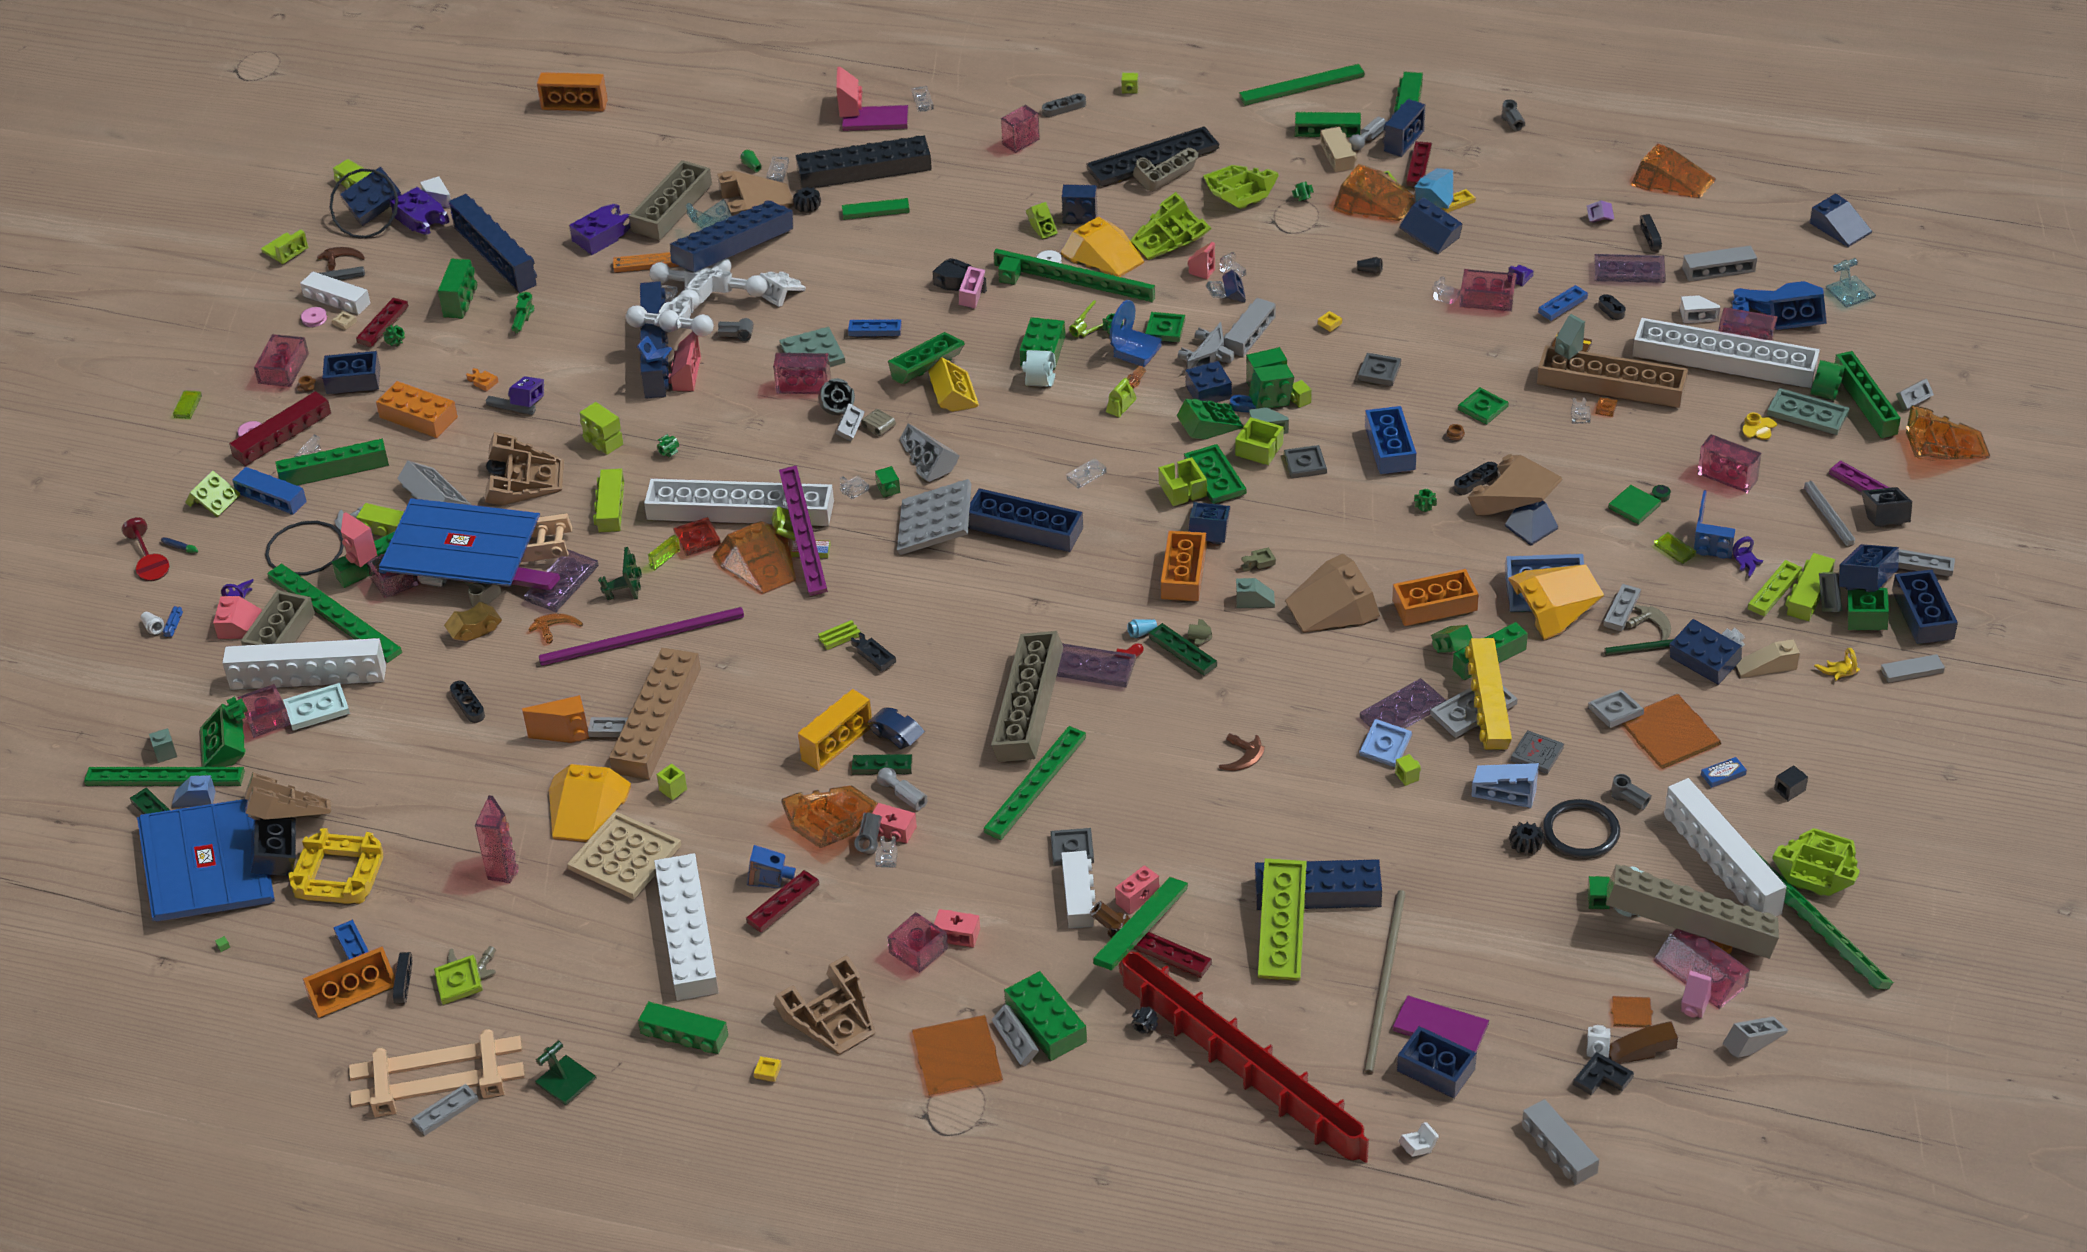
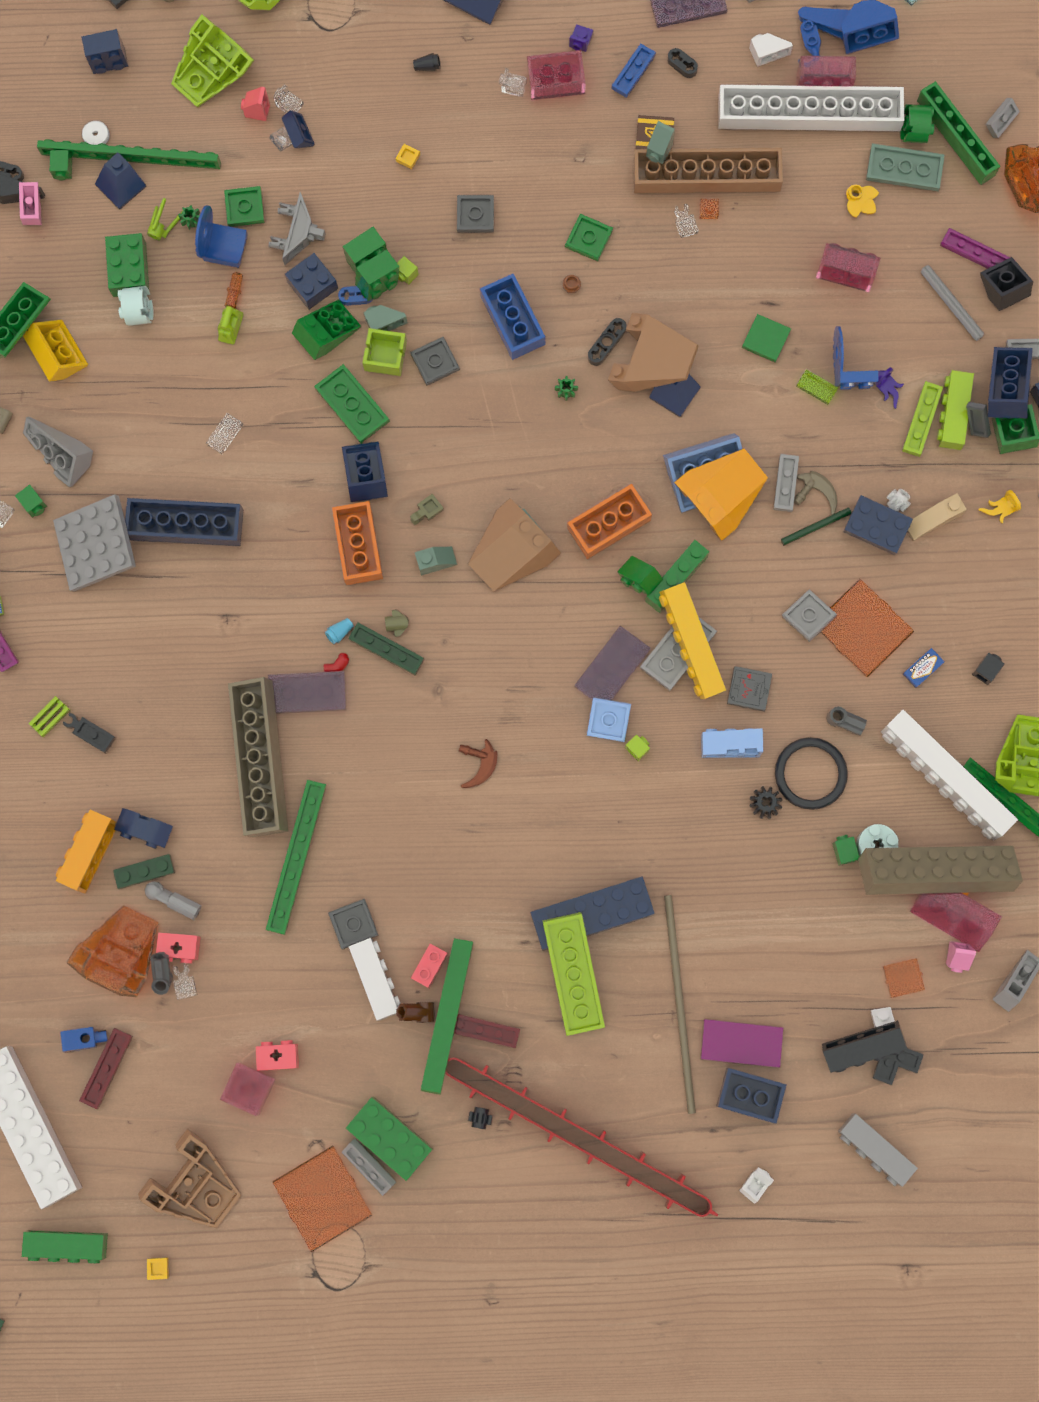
camera: 15 degrees left, 35 degrees up
(1041, 220) = (71, 81): lime slope -> none
(1058, 290) = (119, 181): none -> dark blue slope
(1103, 247) = (148, 104): light orange wedge -> none
(1188, 484) = (326, 429): lime piece -> none
(1250, 326) = (330, 186): light grey brick -> none
(1570, 1044) = (864, 1047): none -> black brick
(1644, 1043) = (926, 1017): reddish brown slope -> none
(1661, 492) = (788, 316): dark green tile -> none

